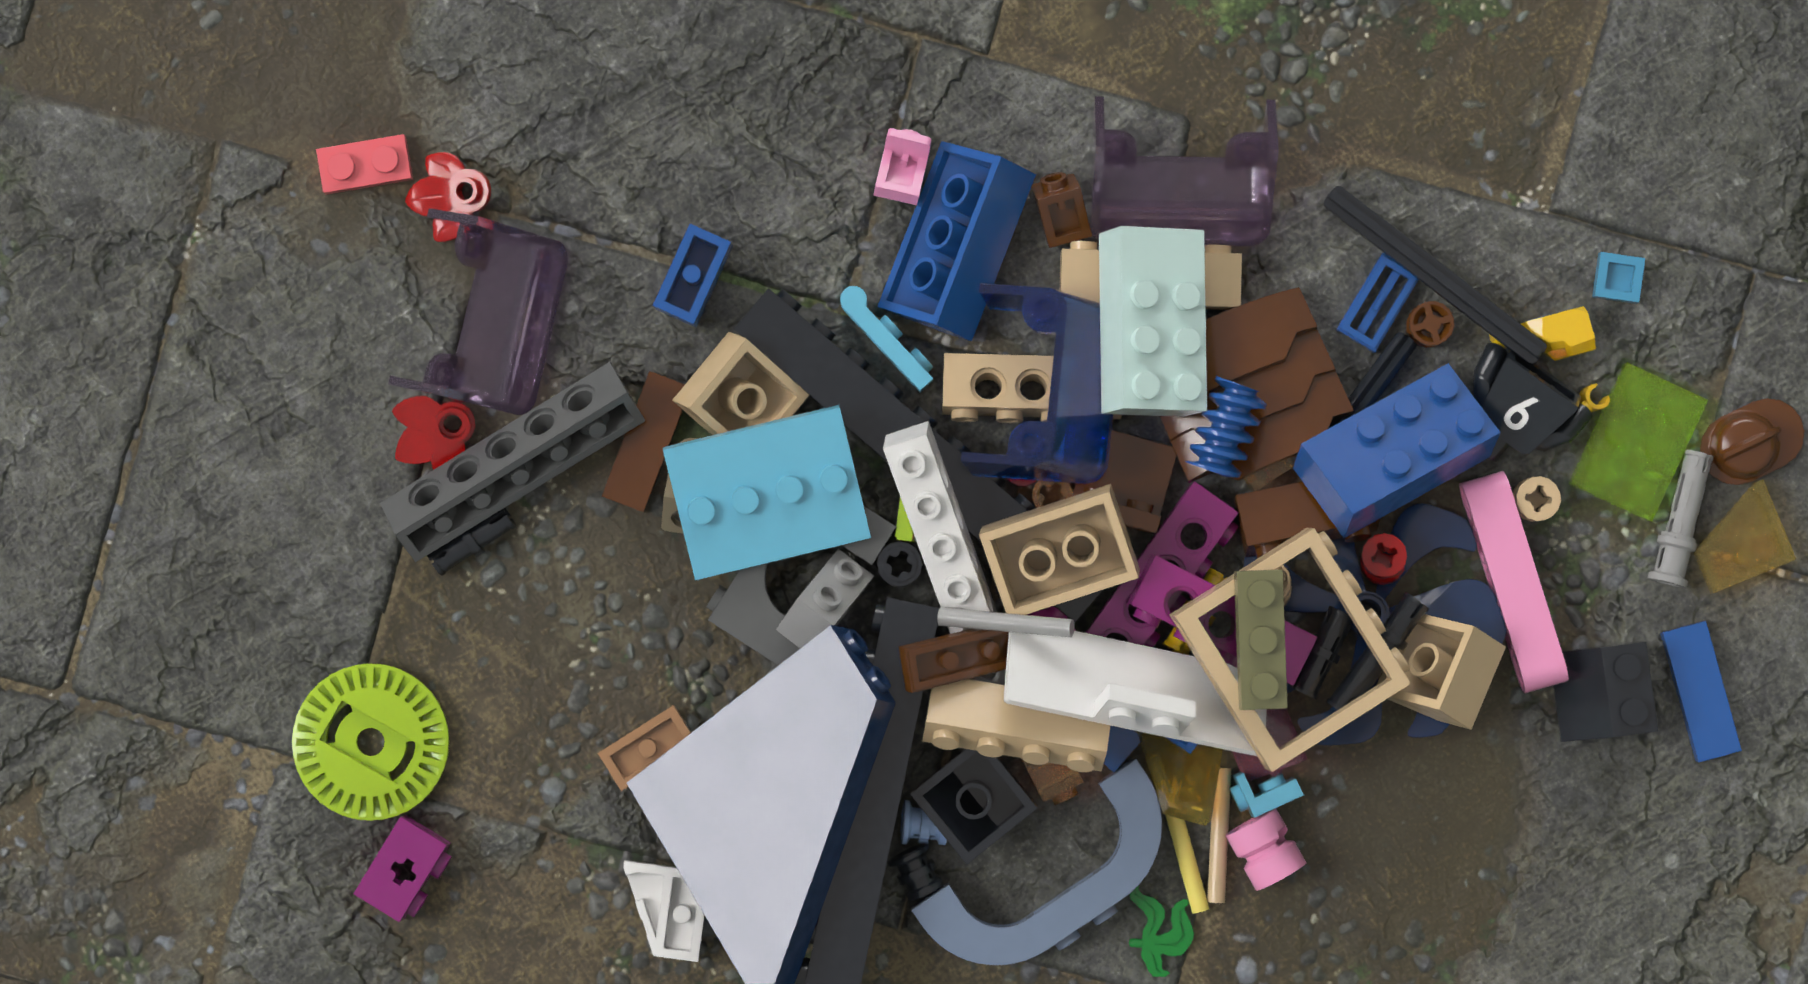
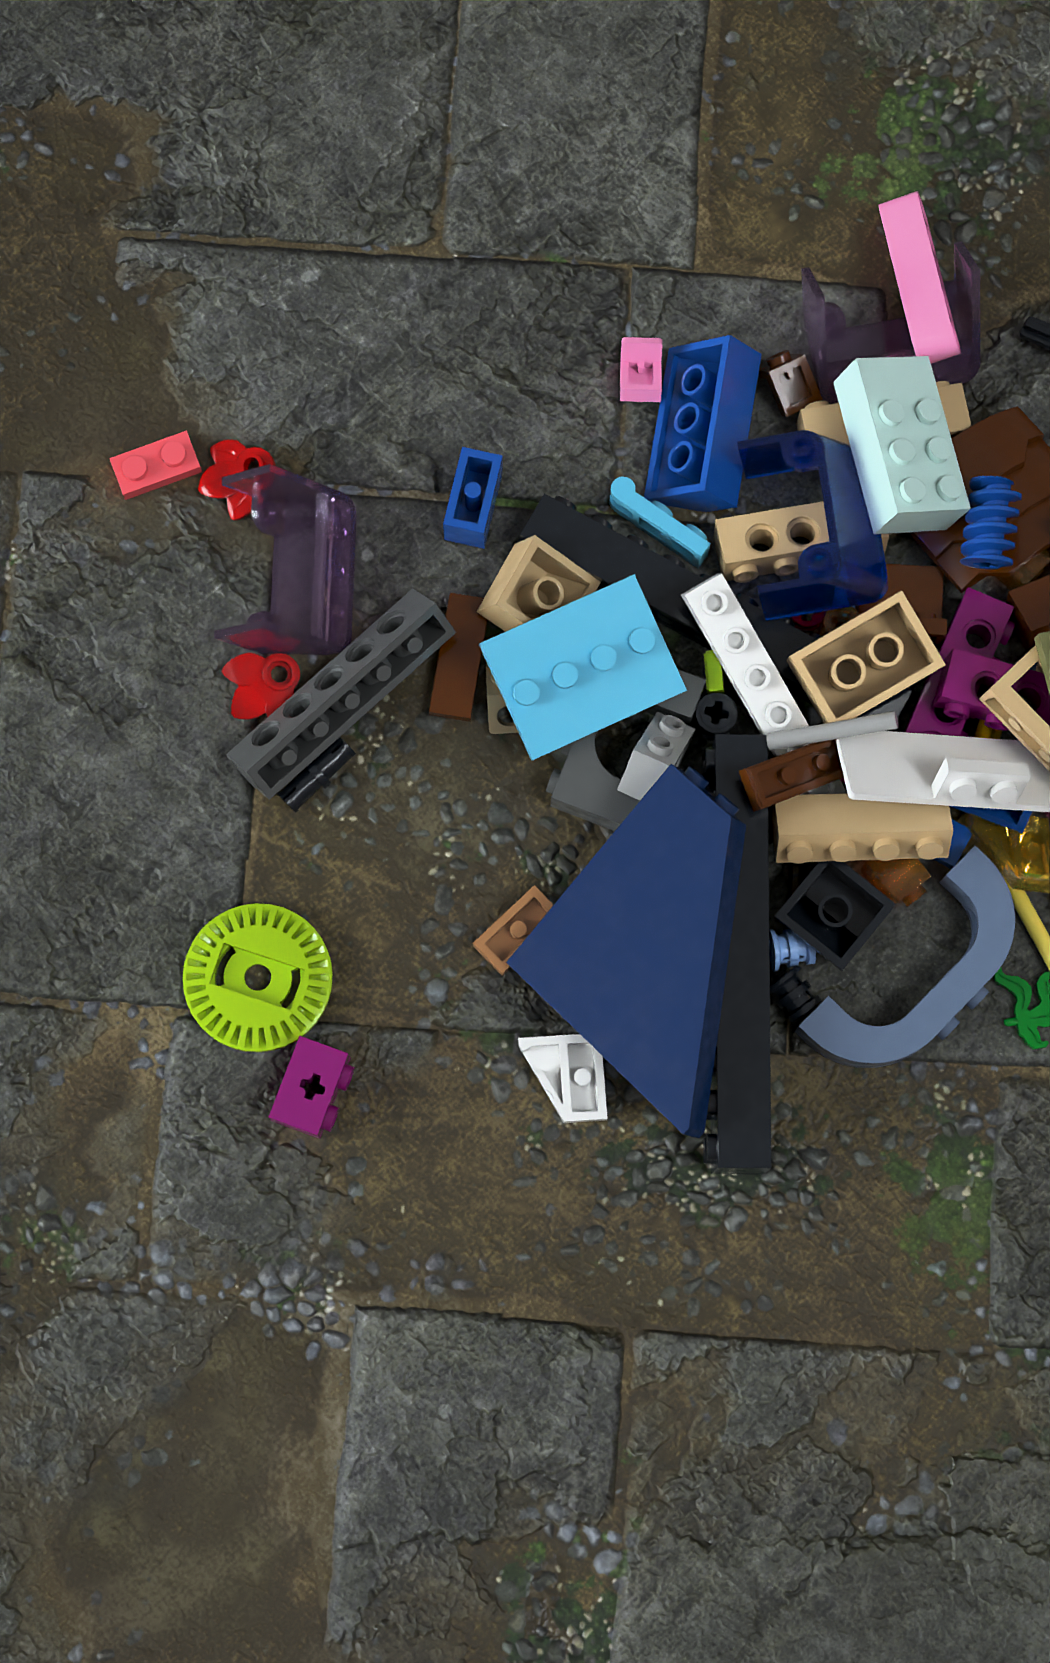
camera: 15 degrees left, 10 degrees down
(1222, 128) = (919, 278): none -> bright pink beam

